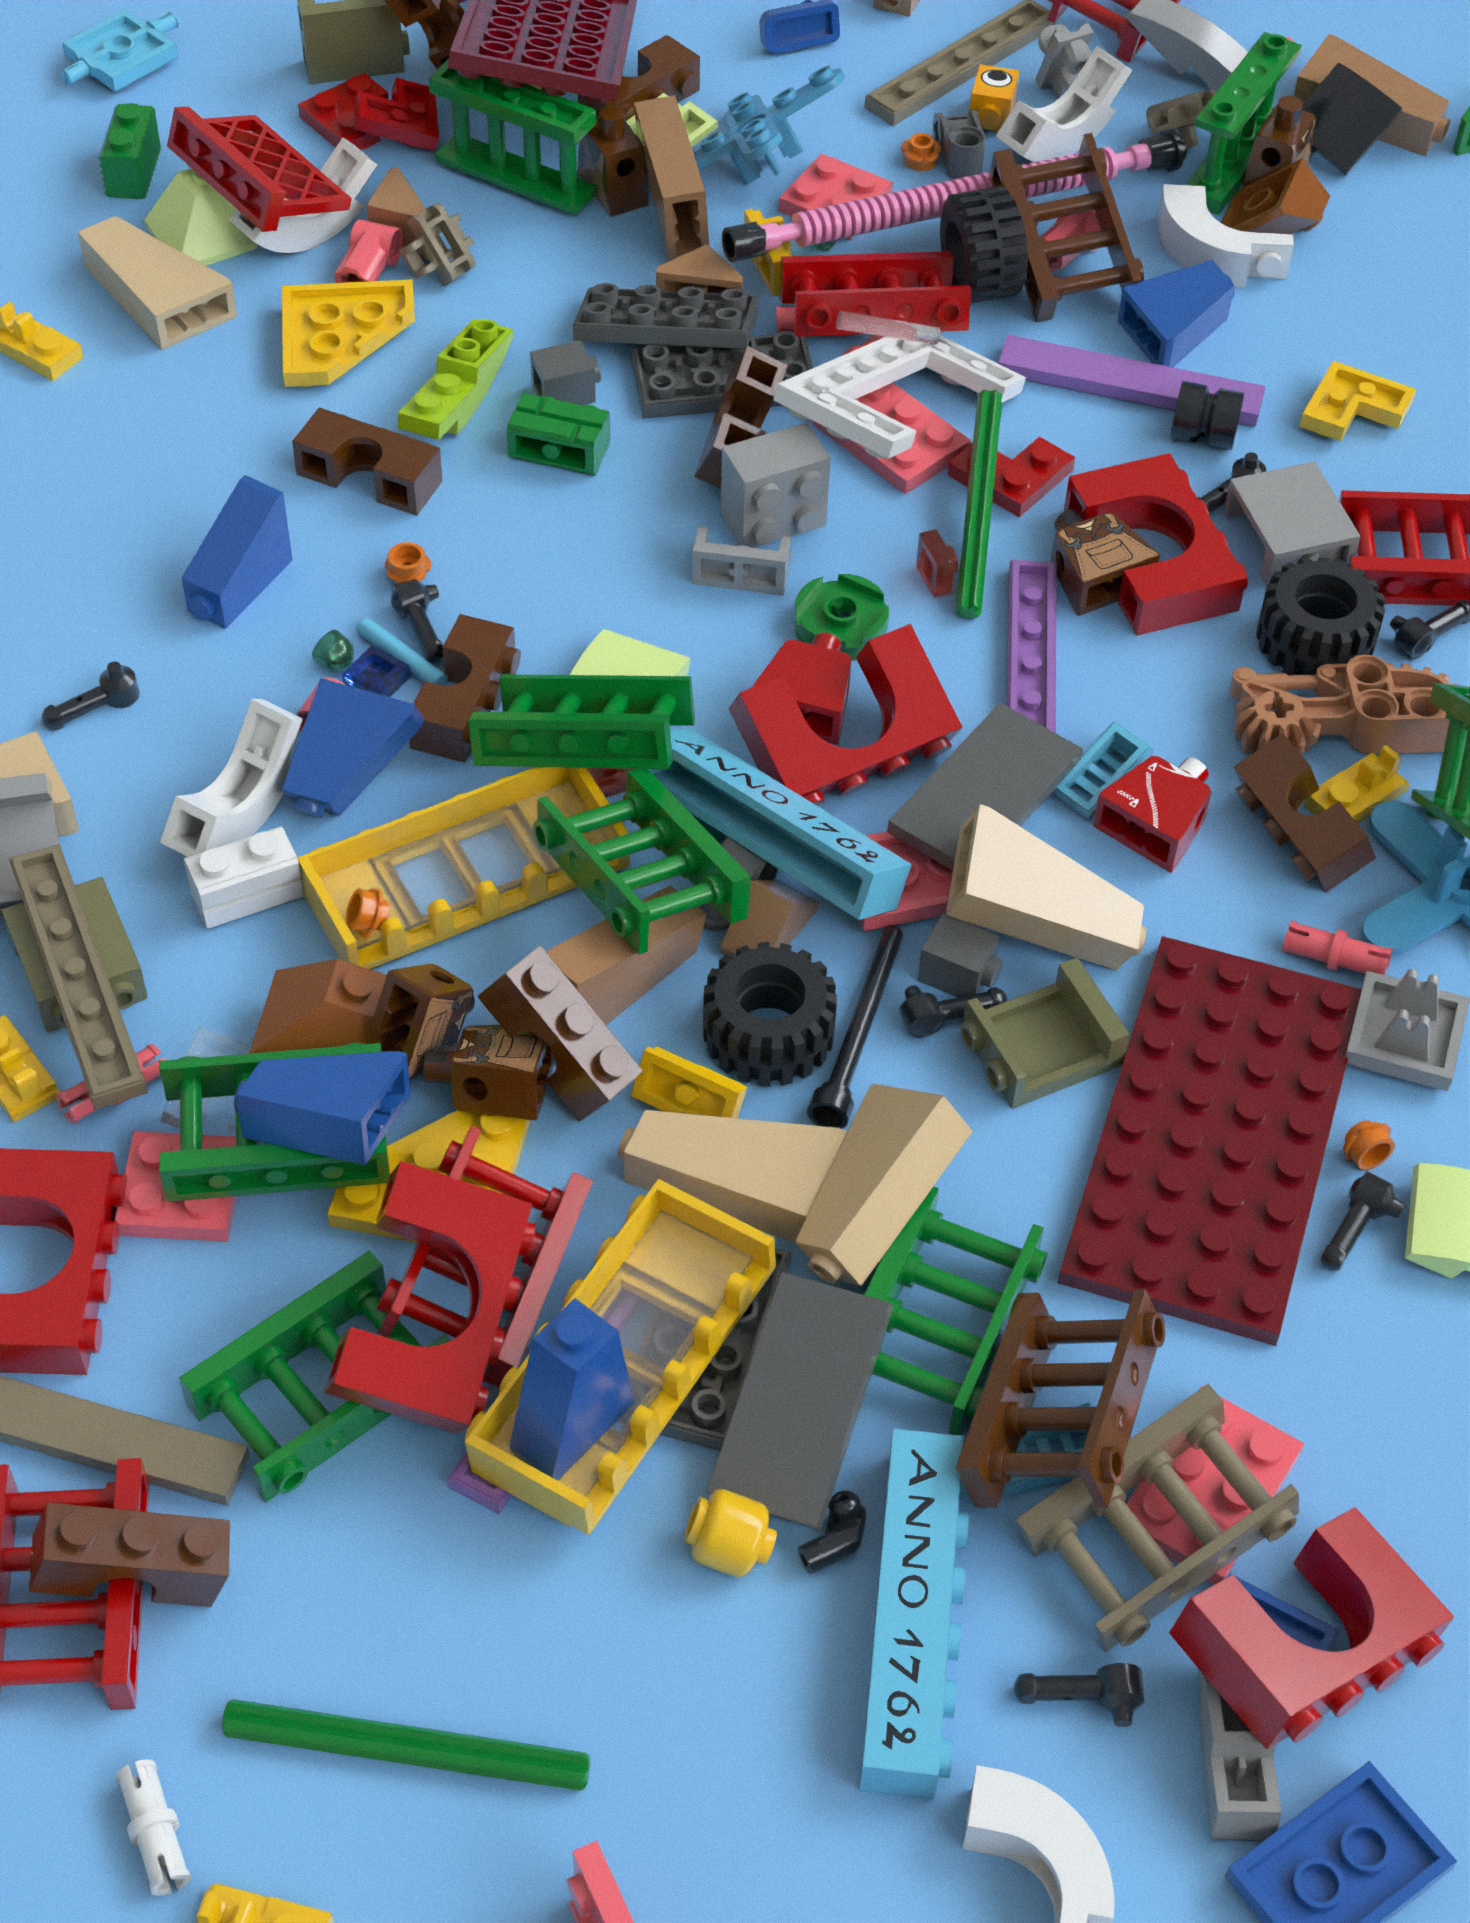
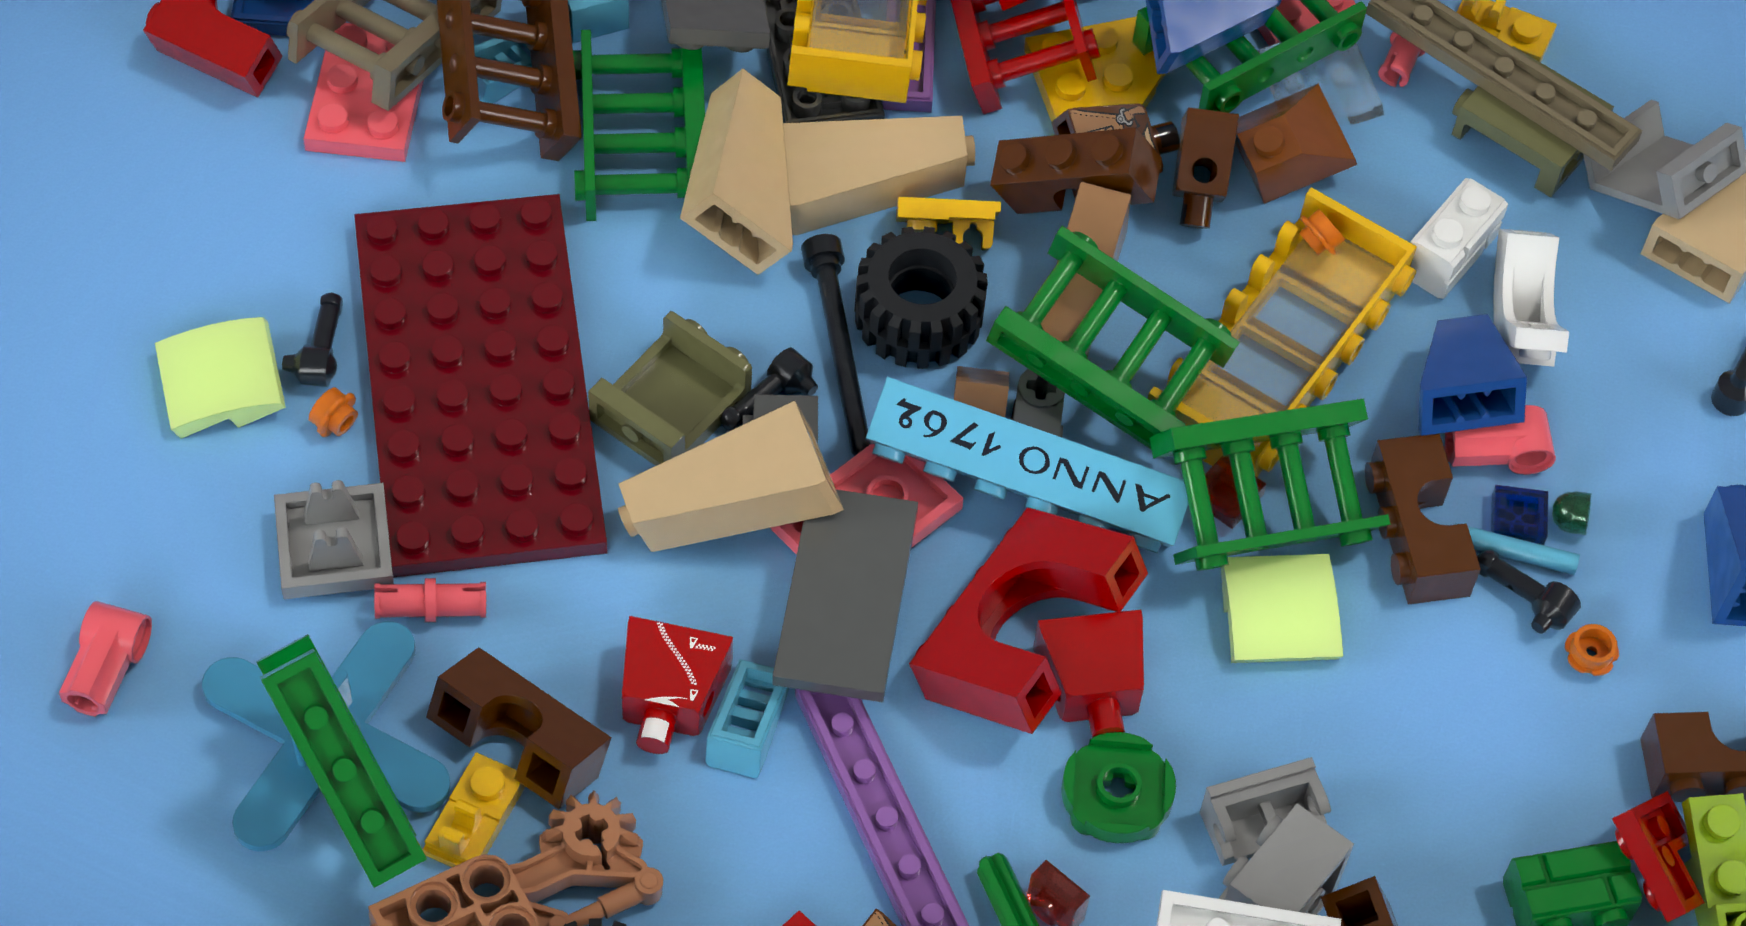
camera: 150 degrees right, 5 degrees up
(492, 410) = (1651, 838): none -> red plate

